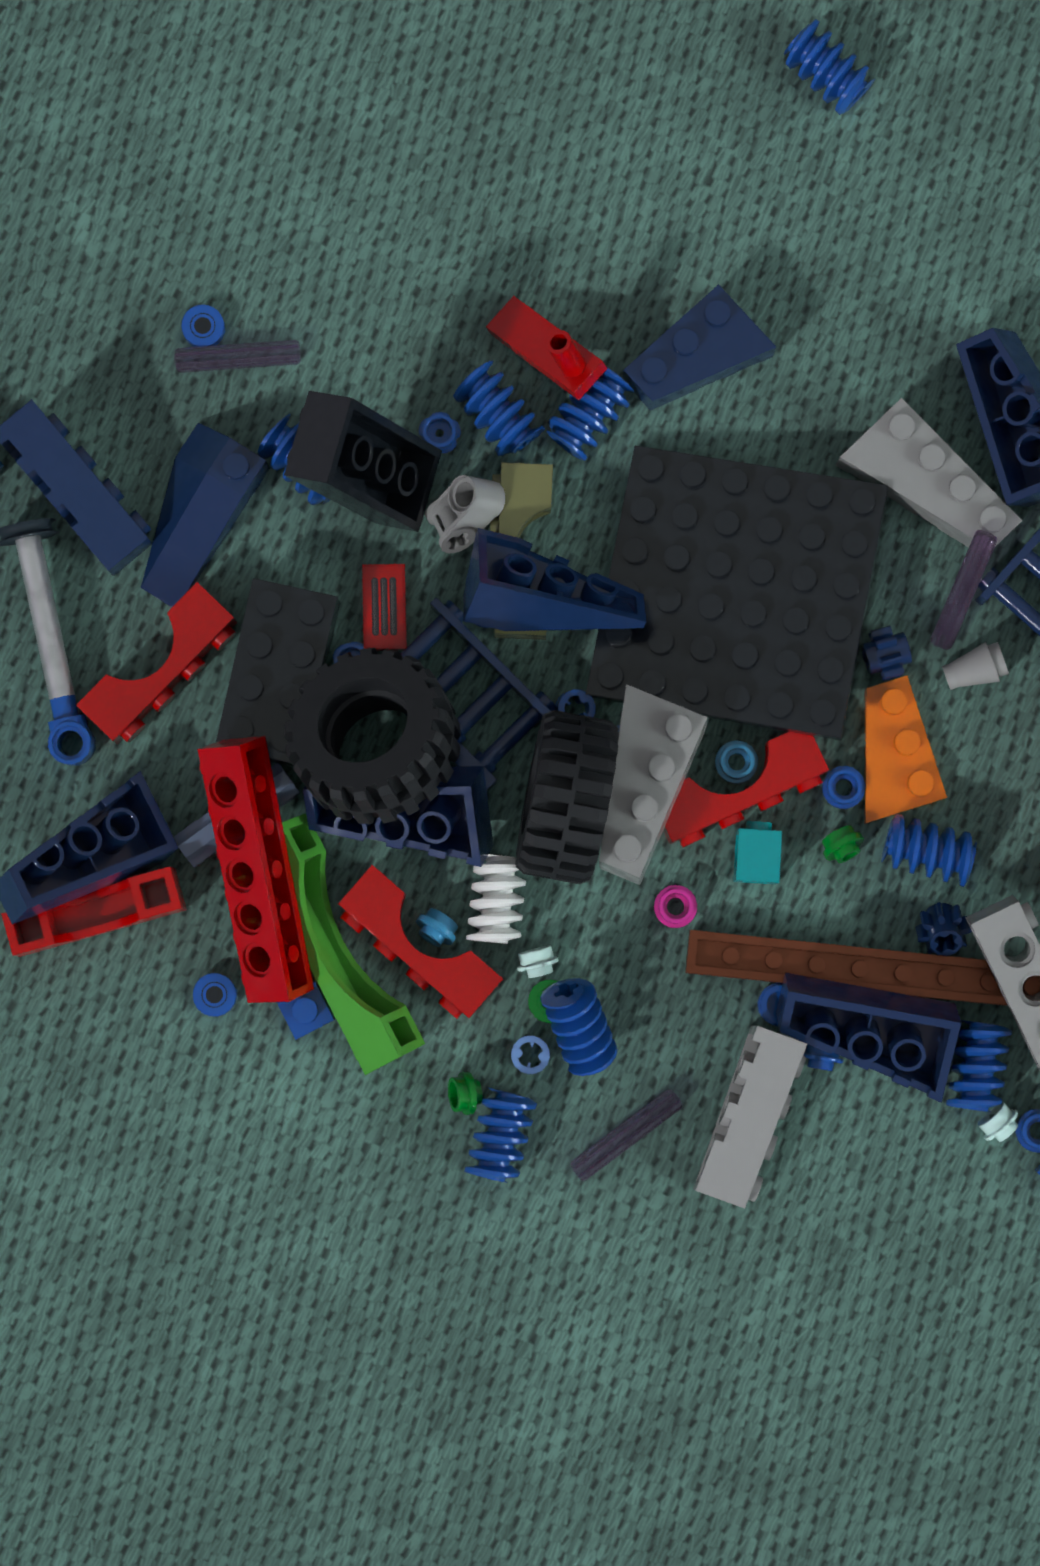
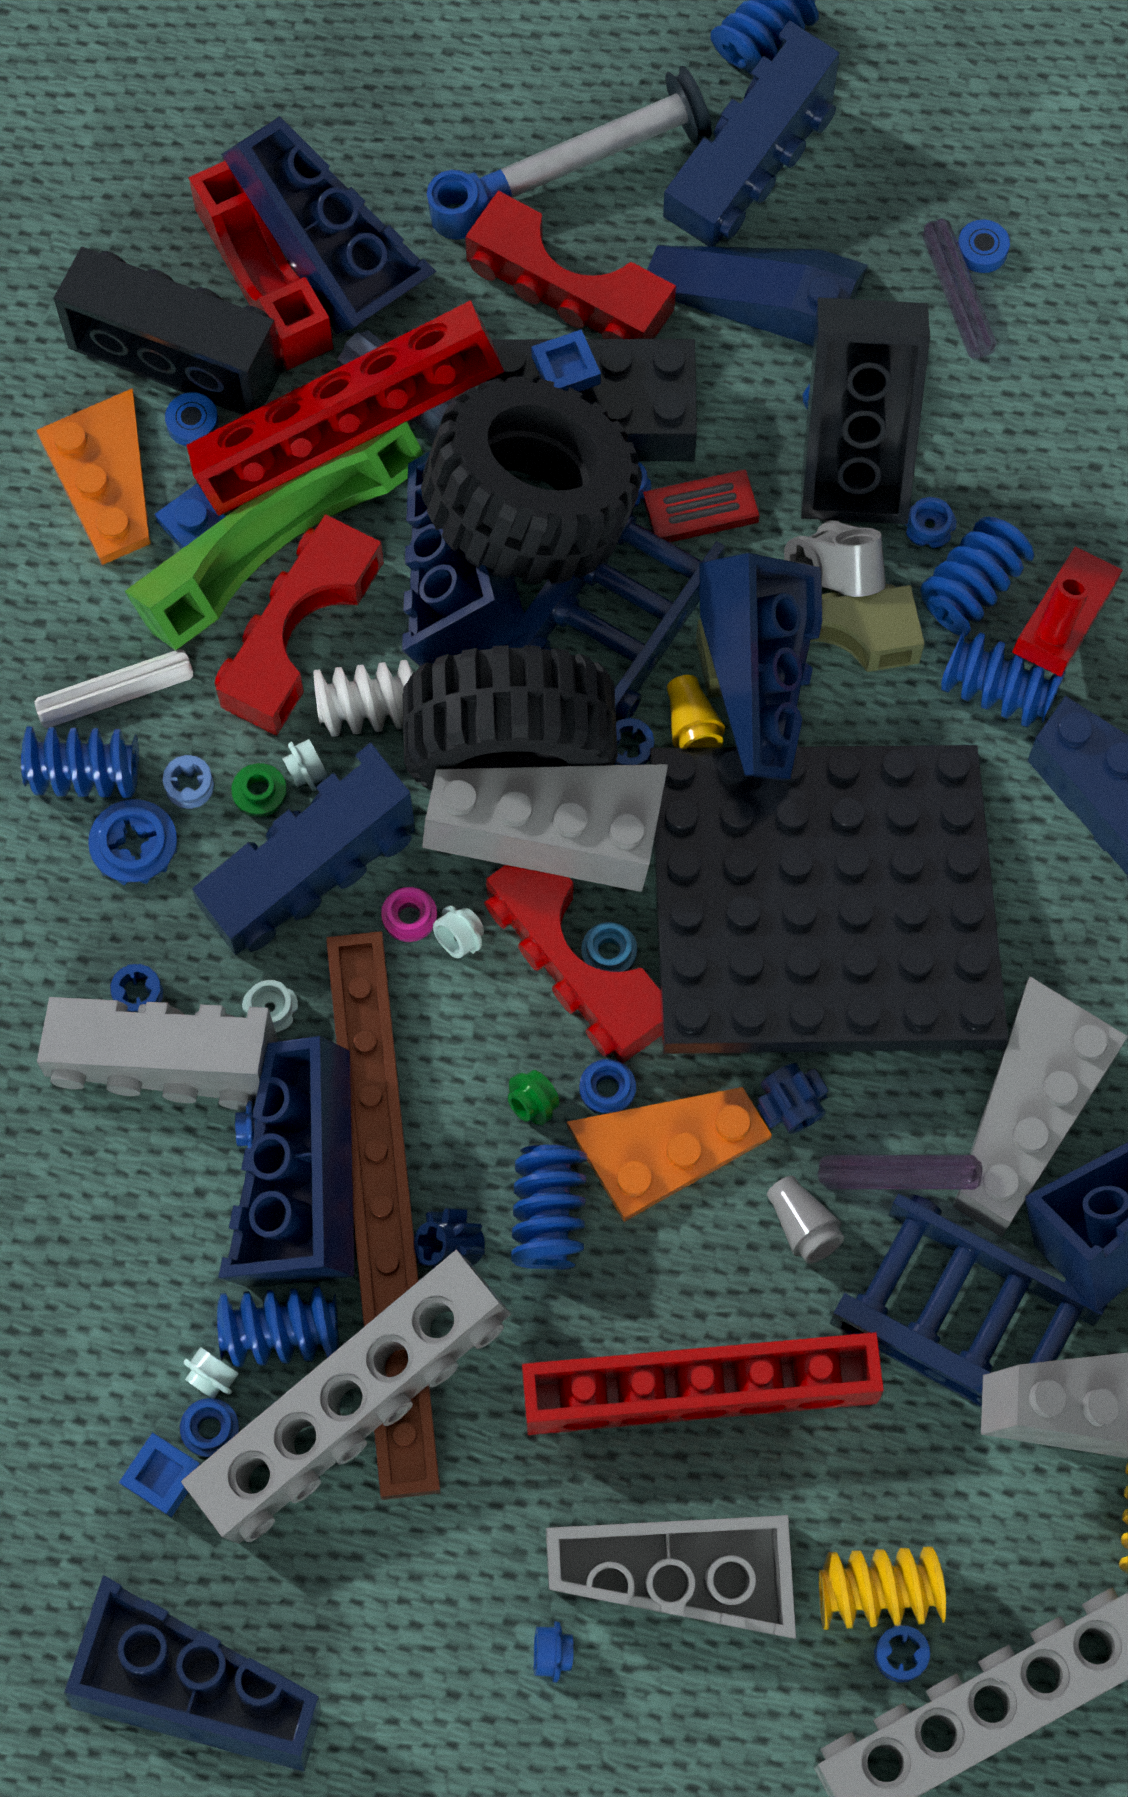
camera: 80 degrees right, 15 degrees down
(146, 998) = (168, 331): none -> black brick
(244, 1076) = (102, 473): none -> orange wing
(265, 685) = (567, 362): none -> blue plate
(437, 928) = (322, 641): dark azure plate -> none
(438, 1099) = (113, 688): none -> white axle
(464, 1093) = (125, 712): green plate -> none
(564, 655) = (692, 716): none -> yellow cone
(579, 1026) = (233, 818): blue piece -> none
(586, 1119) = (110, 830): none -> blue gear
(619, 976) = (309, 854): none -> dark blue wedge
(626, 1134) = (109, 915): axle -> none
(692, 1111) = (132, 973): none -> blue bush
(699, 871) = (463, 926): none -> light aqua plate
(738, 1023) = (276, 993): none -> light aqua plate
(757, 854) = (496, 993): teal brick -> none

